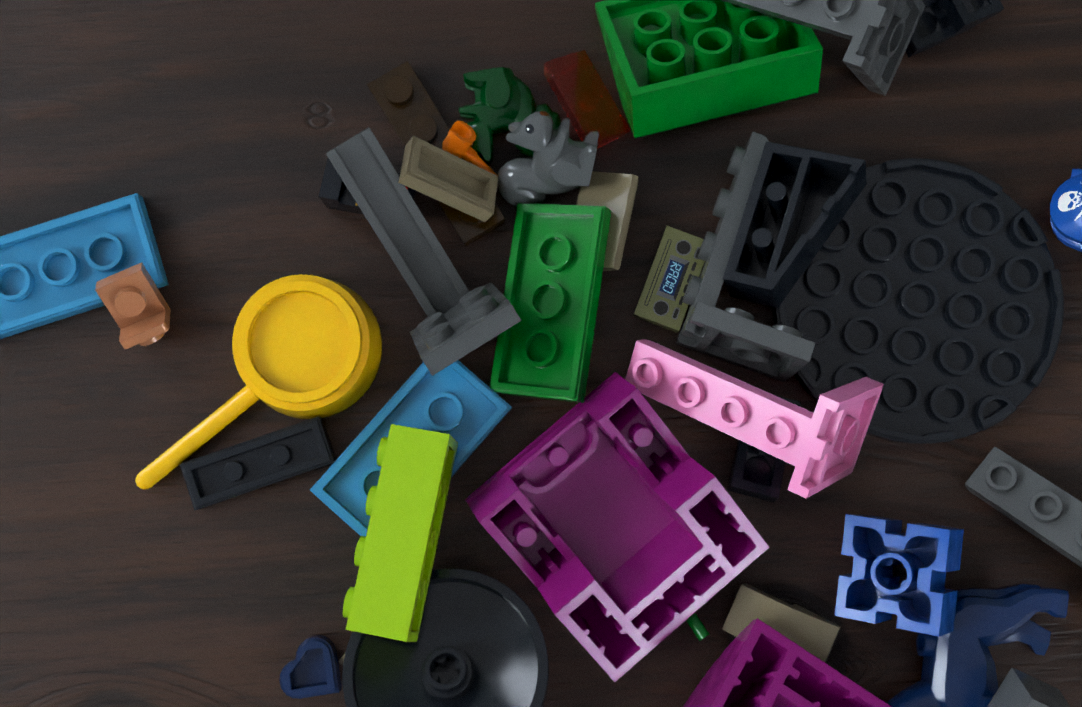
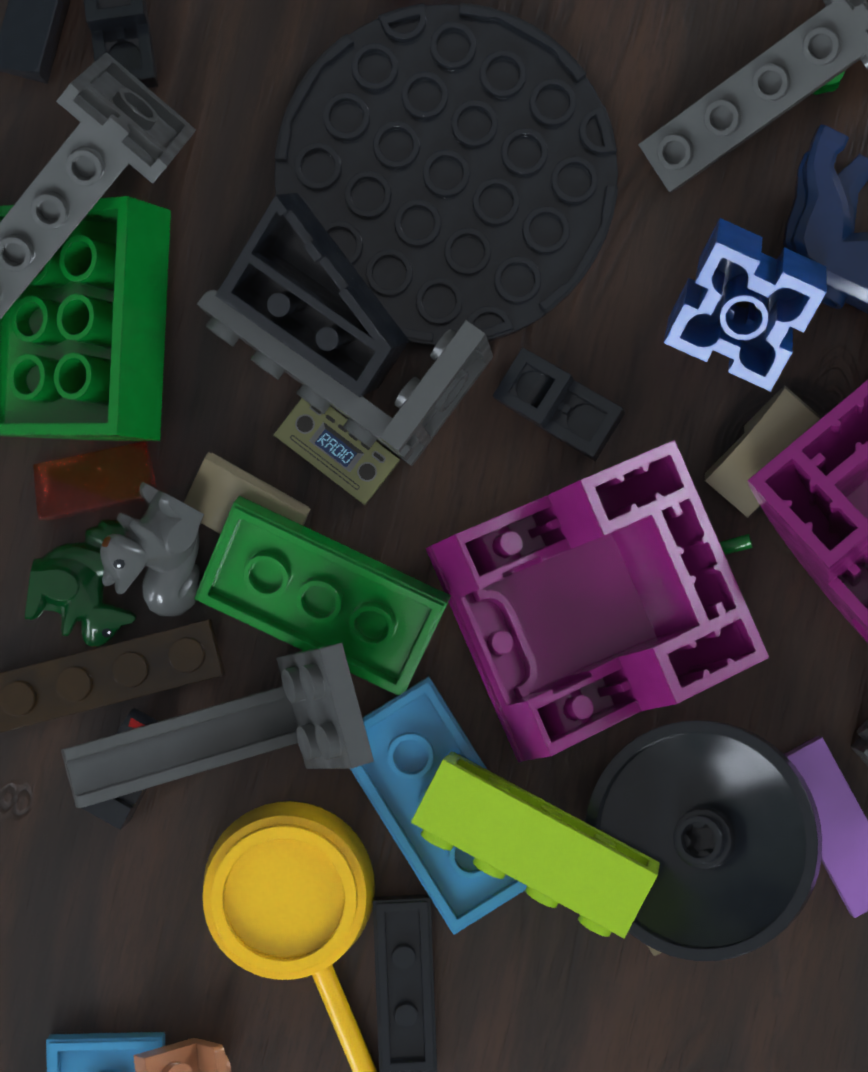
camera: 75 degrees left, 5 degrees up
(313, 671) = (655, 987): dark blue tile -> none
(448, 179) = (146, 673): dark tan tile -> none
(459, 143) = (107, 647): orange hand -> none
(817, 443) = (579, 353): bright pink bracket -> none

